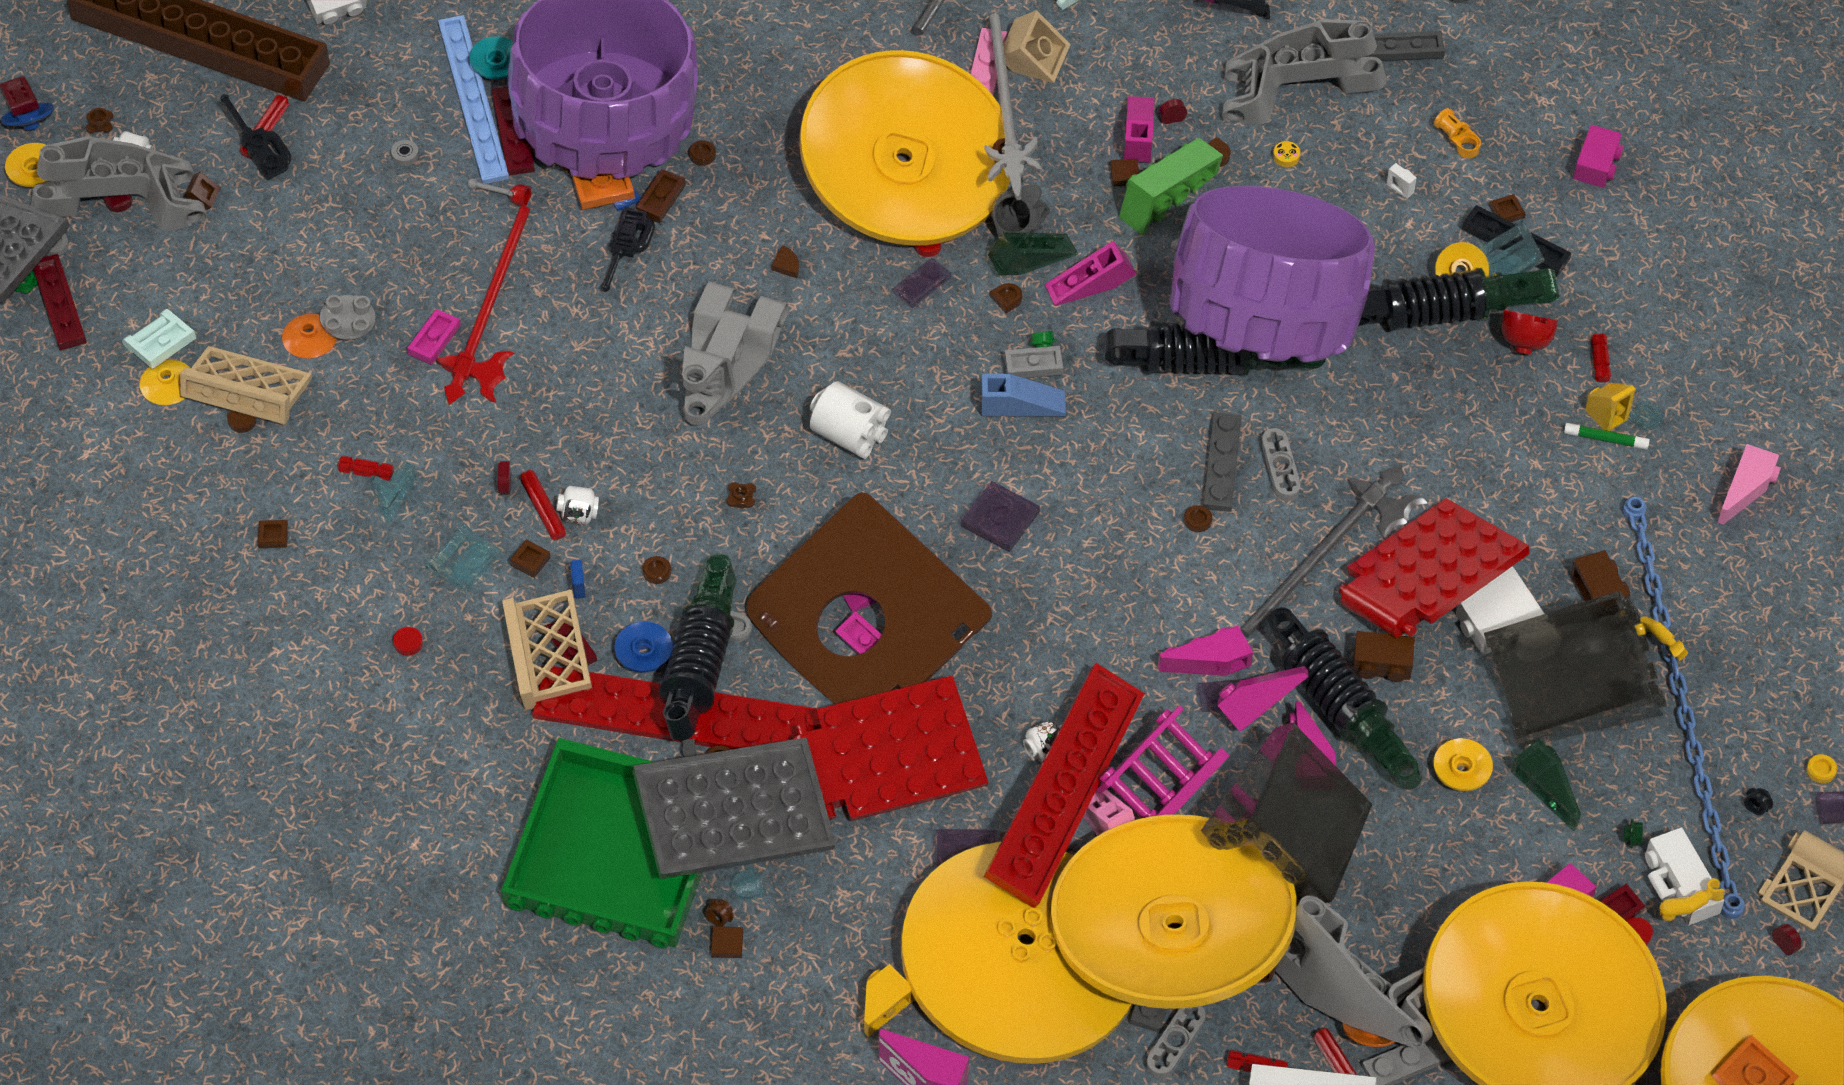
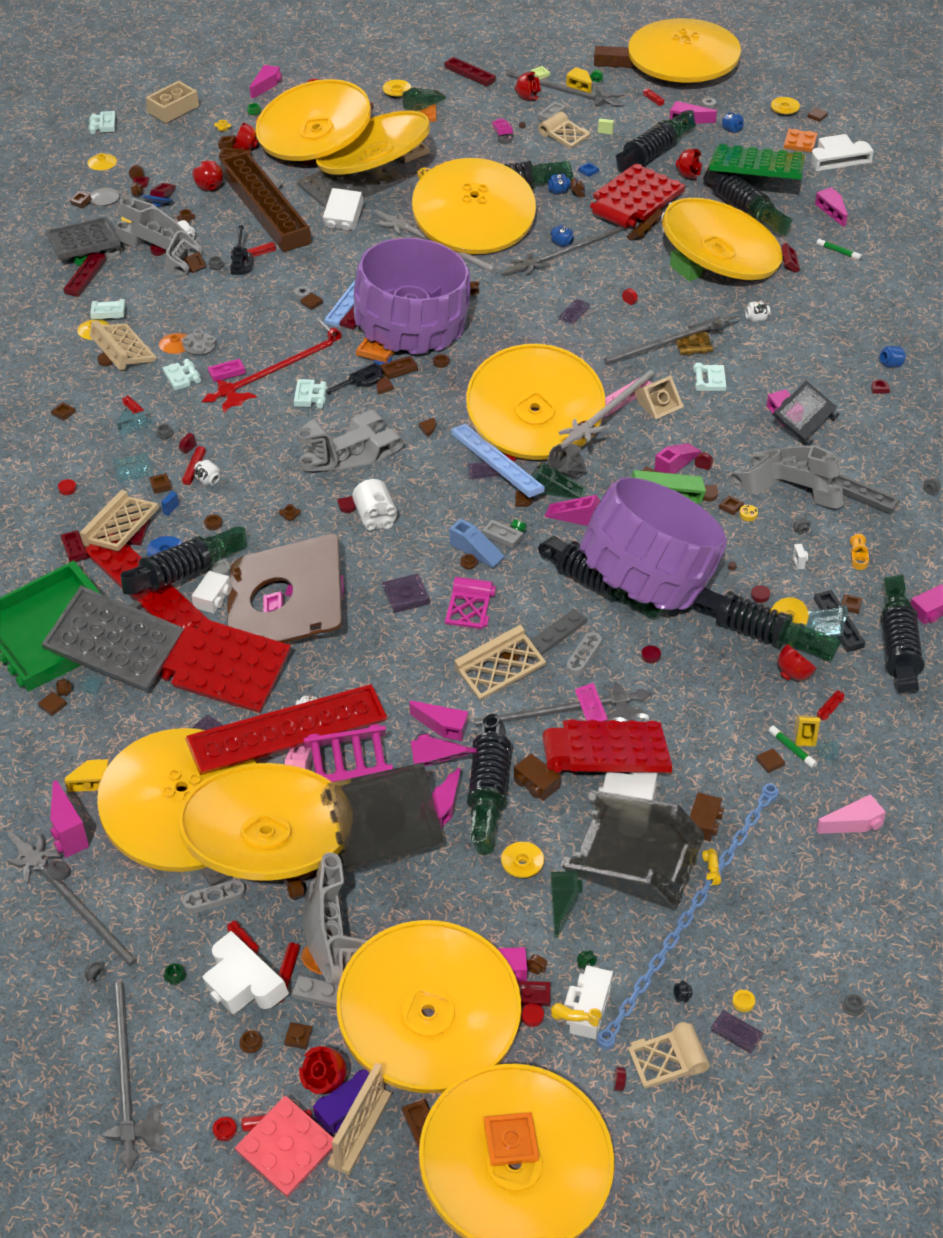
camera: 40 degrees right, 10 degrees down
(72, 38) = (208, 176): none -> red cylinder
(227, 169) = (215, 262): none -> dark grey plate
(372, 386) = (177, 377): none -> light aqua plate
(432, 159) = (311, 301): none -> reddish brown tile
(449, 473) = (164, 431): none -> dark grey plate
(516, 718) = (73, 546): none -> dark red plate
(578, 310) = (305, 393): none -> light aqua plate
(667, 235) = (384, 385): none -> reddish brown tile
(767, 667) = (211, 592): none -> white brick
(800, 438) = (346, 504): none -> dark red tile
(931, 261) = (497, 460): none -> light blue tile
(1029, 431) = (468, 561): none -> reddish brown plate
(1081, 461) = (471, 590): none -> dark pink piece
(1180, 537) = (488, 652): none -> tan fence
(1257, 155) = (731, 505): none -> reddish brown tile
(1353, 416) = (651, 654): none -> dark red tile
(1357, 525) = (591, 703): none -> dark pink plate
(1364, 136) = (801, 525): none -> dark grey plate
(1399, 258) = (760, 594): none -> dark red tile
(1592, 871) = (536, 964): none -> reddish brown plate
(1600, 469) = (770, 760): none -> reddish brown tile
(1604, 219) = (901, 636): none -> black piece

